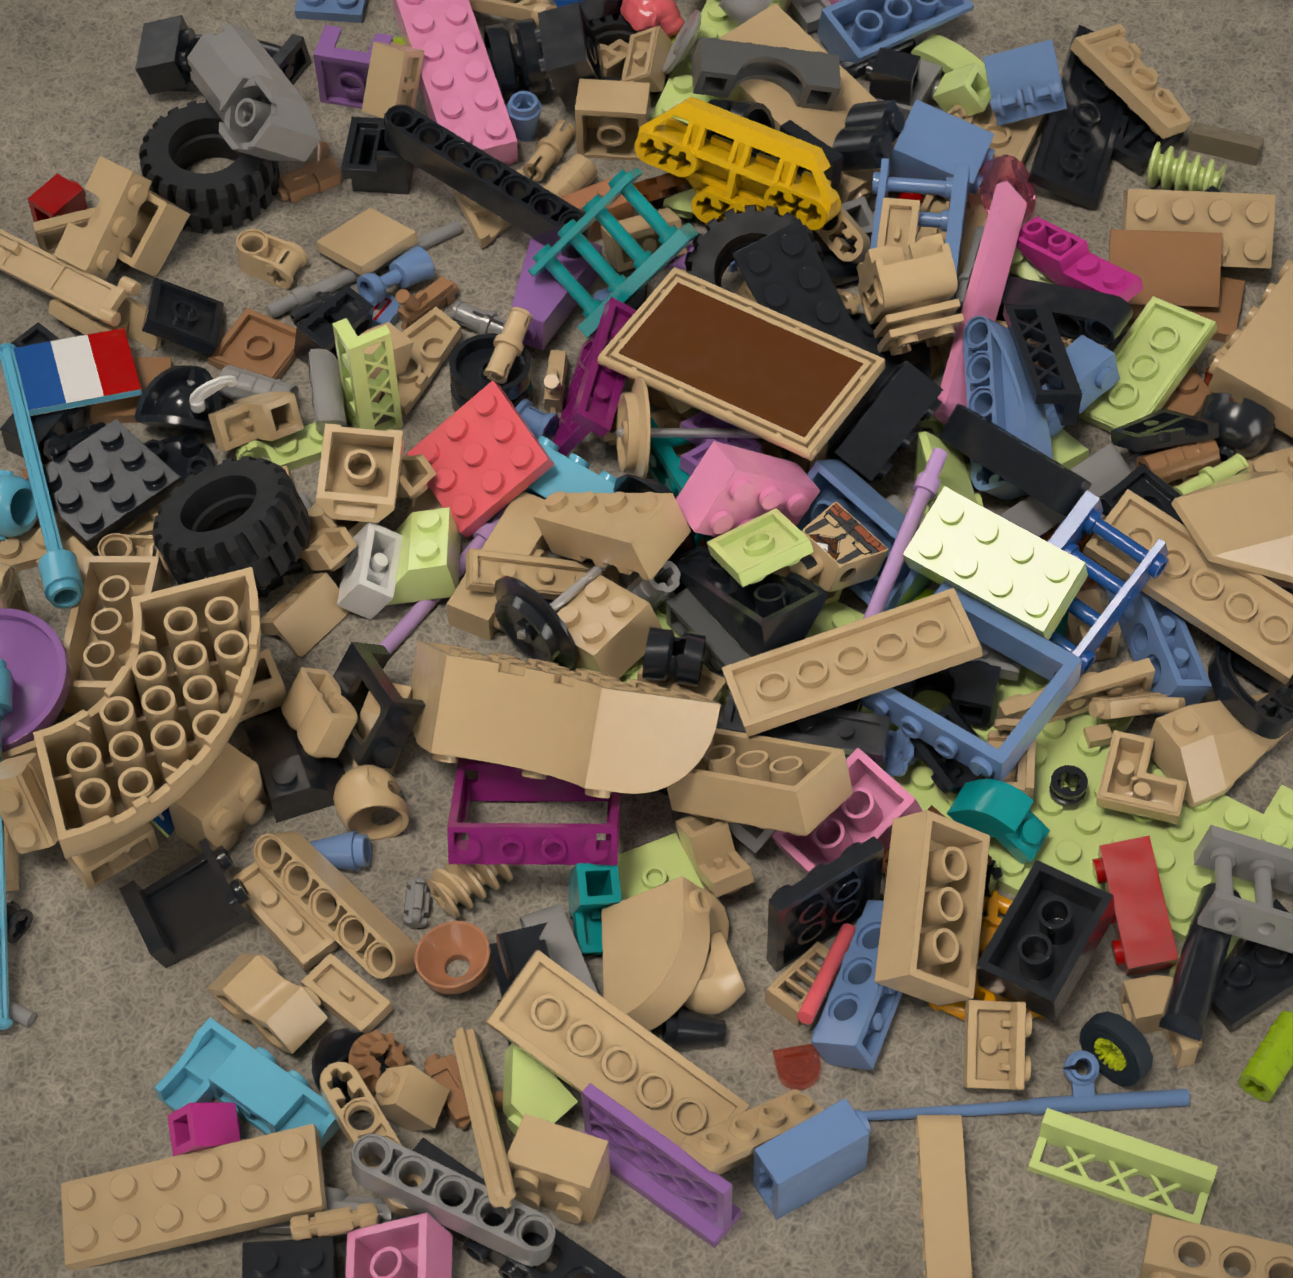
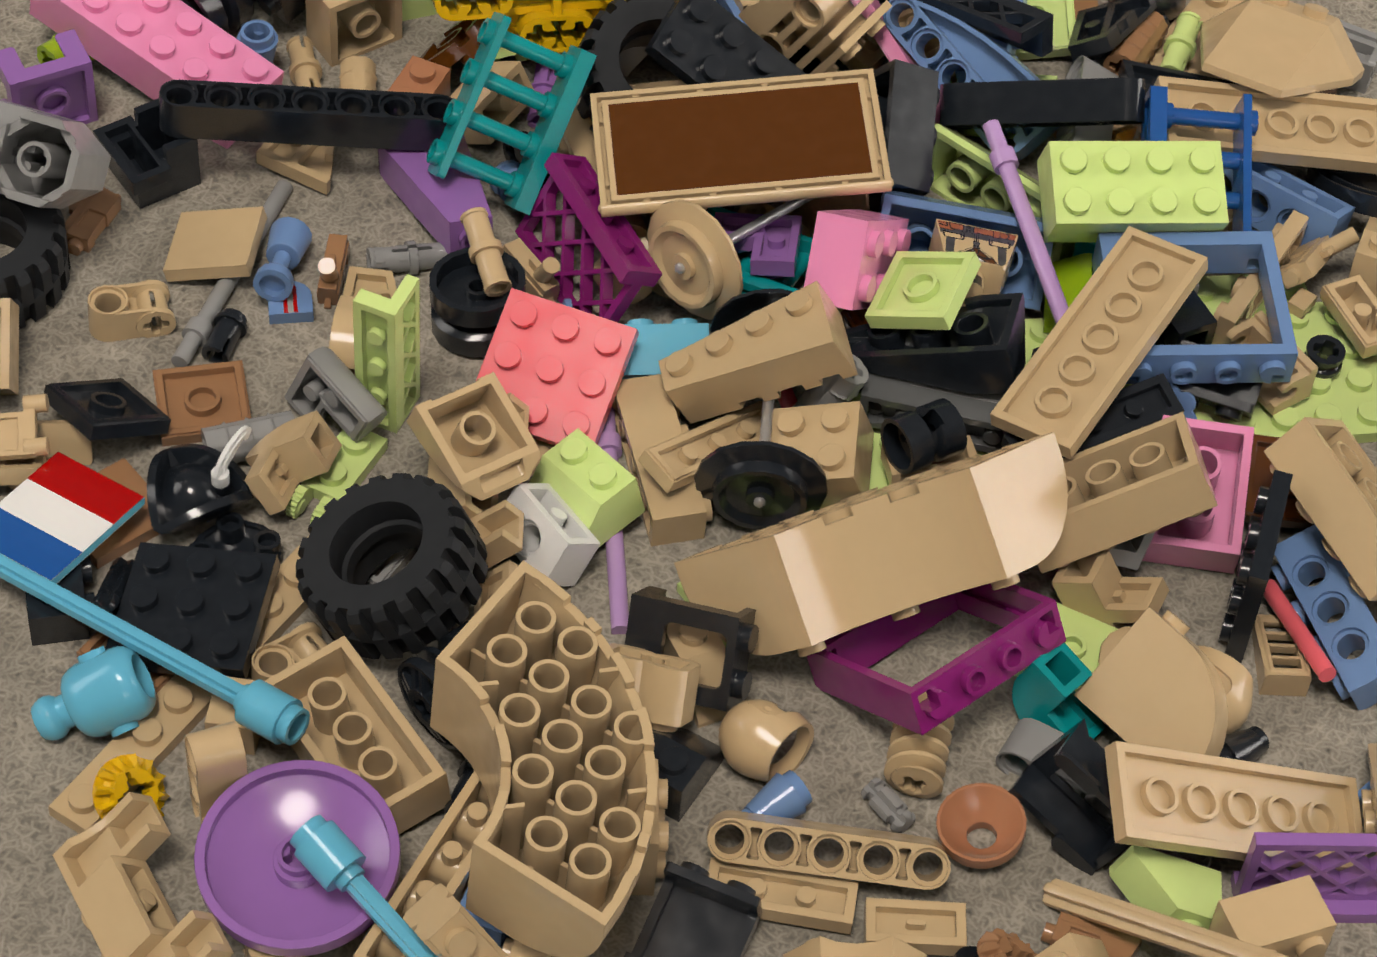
camera: 45 degrees left, 5 degrees down
(317, 329) = (275, 338): black brick -> none
(392, 77) = (111, 72): tan hinge -> none
(797, 1066) = (1342, 727): clear red tile -> none
(1001, 813) = (1304, 395): teal brick -> none

